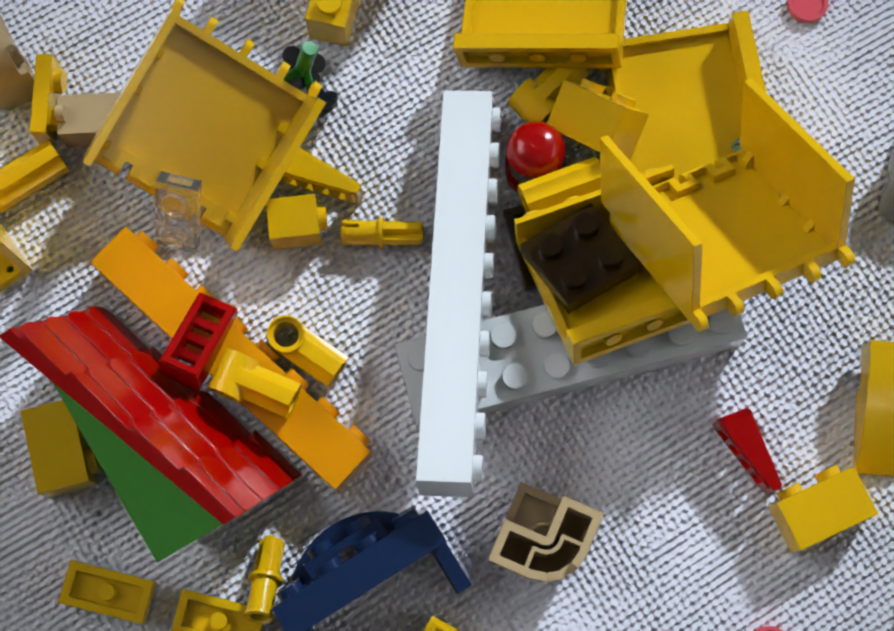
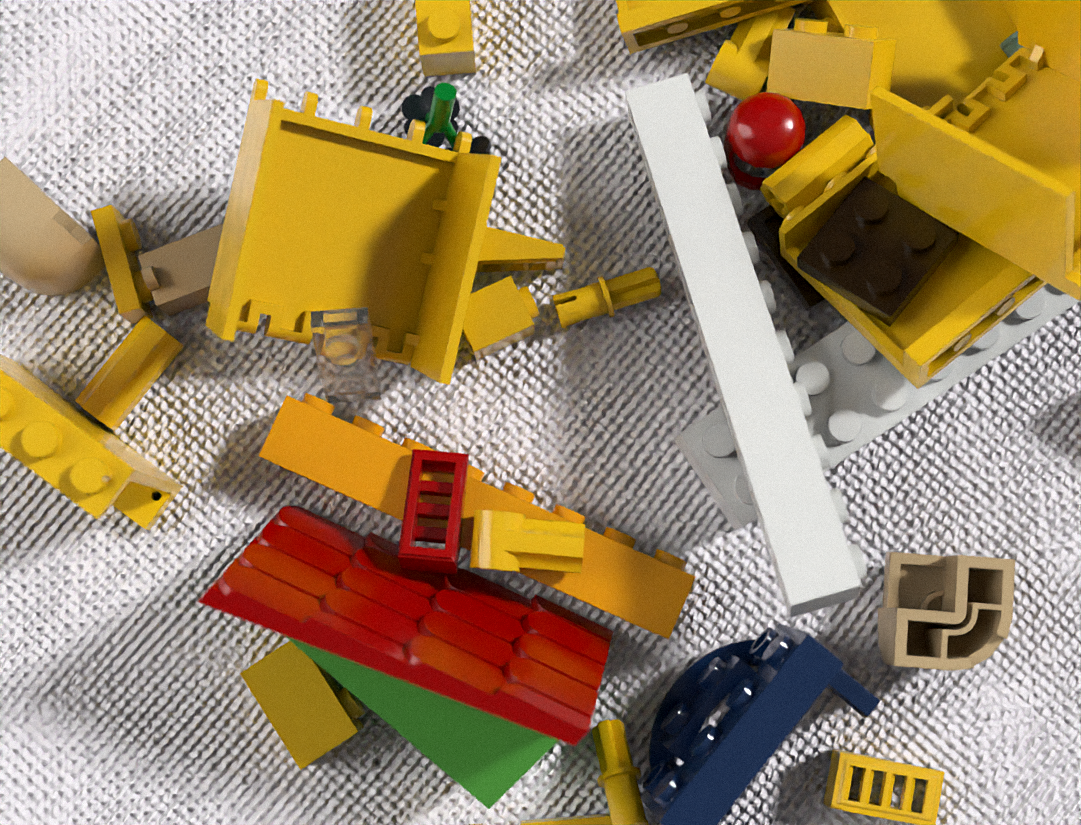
camera: 20 degrees left, 5 degrees up
(309, 352) = (572, 476): yellow piece -> none

